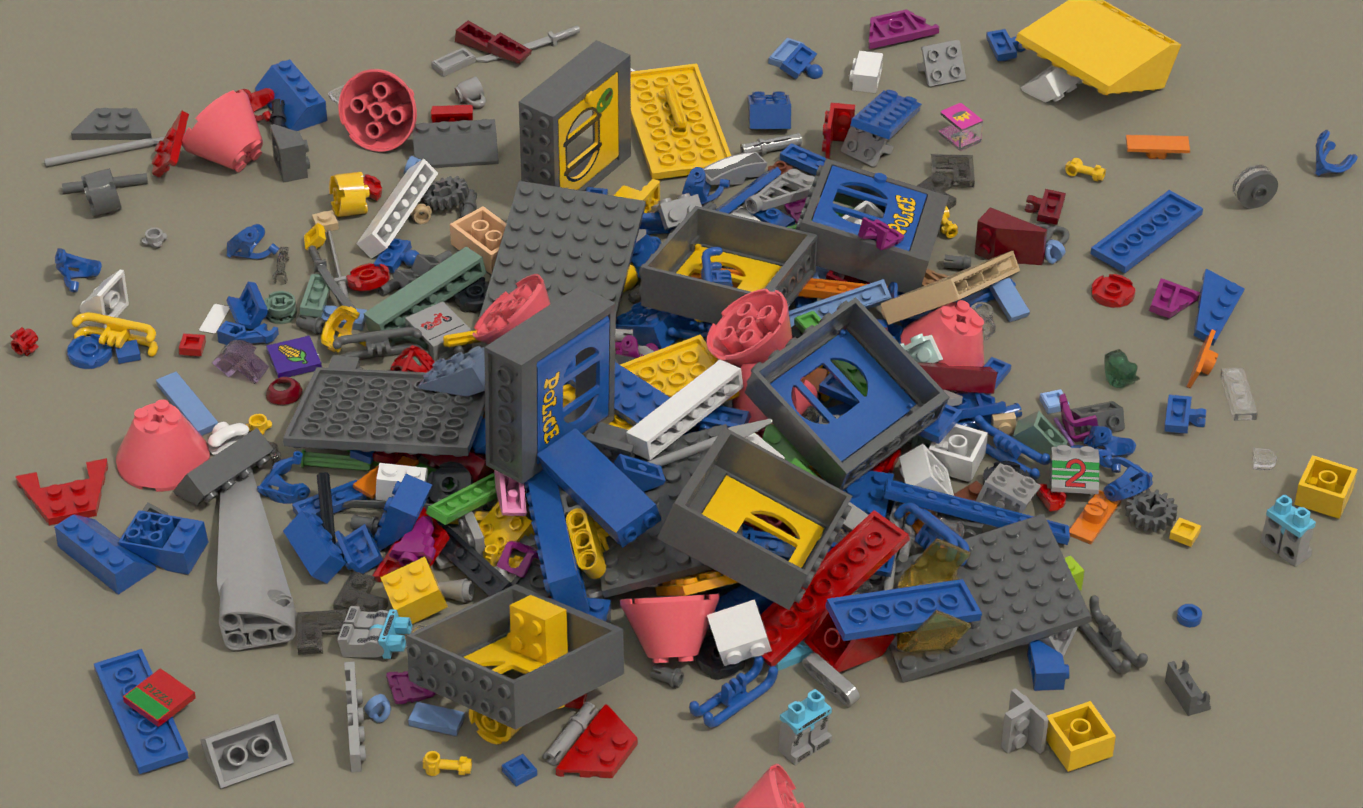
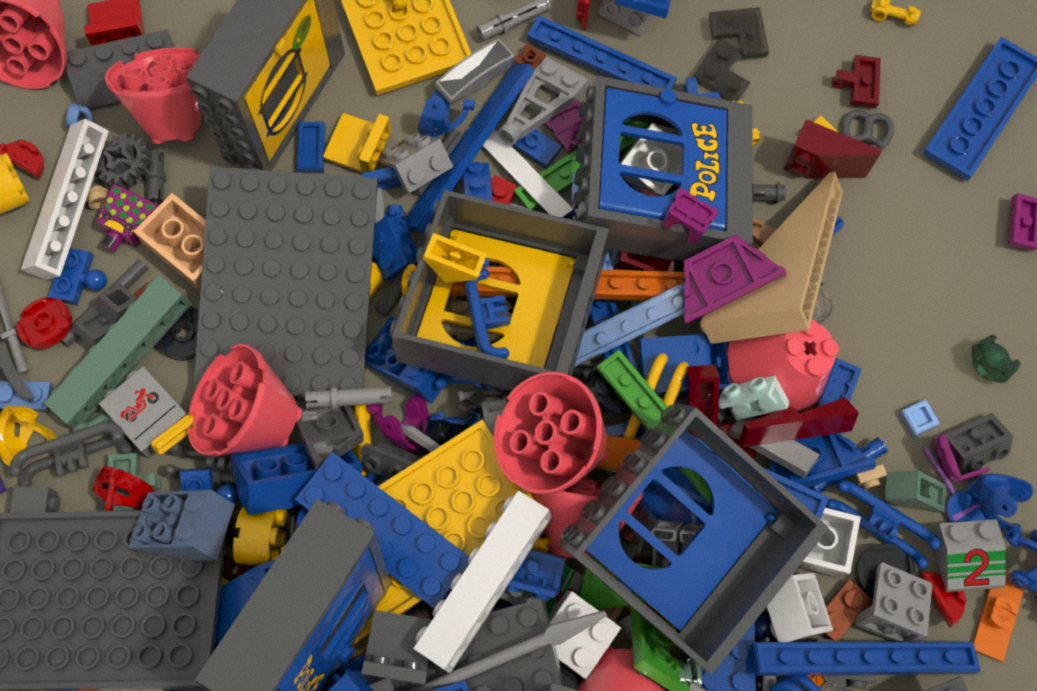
camera: 10 degrees left, 30 degrees up
(436, 224) = (121, 216): none -> magenta torso
(486, 152) = (158, 93): none -> coral cone
(694, 241) = (453, 260): none -> yellow slope
(903, 275) = (724, 275): none -> magenta wing
(1009, 300) = (844, 255): medium blue tile -> none
(1054, 251) = (884, 161): medium blue tile -> none
(1113, 291) = (958, 213): red tile -> none

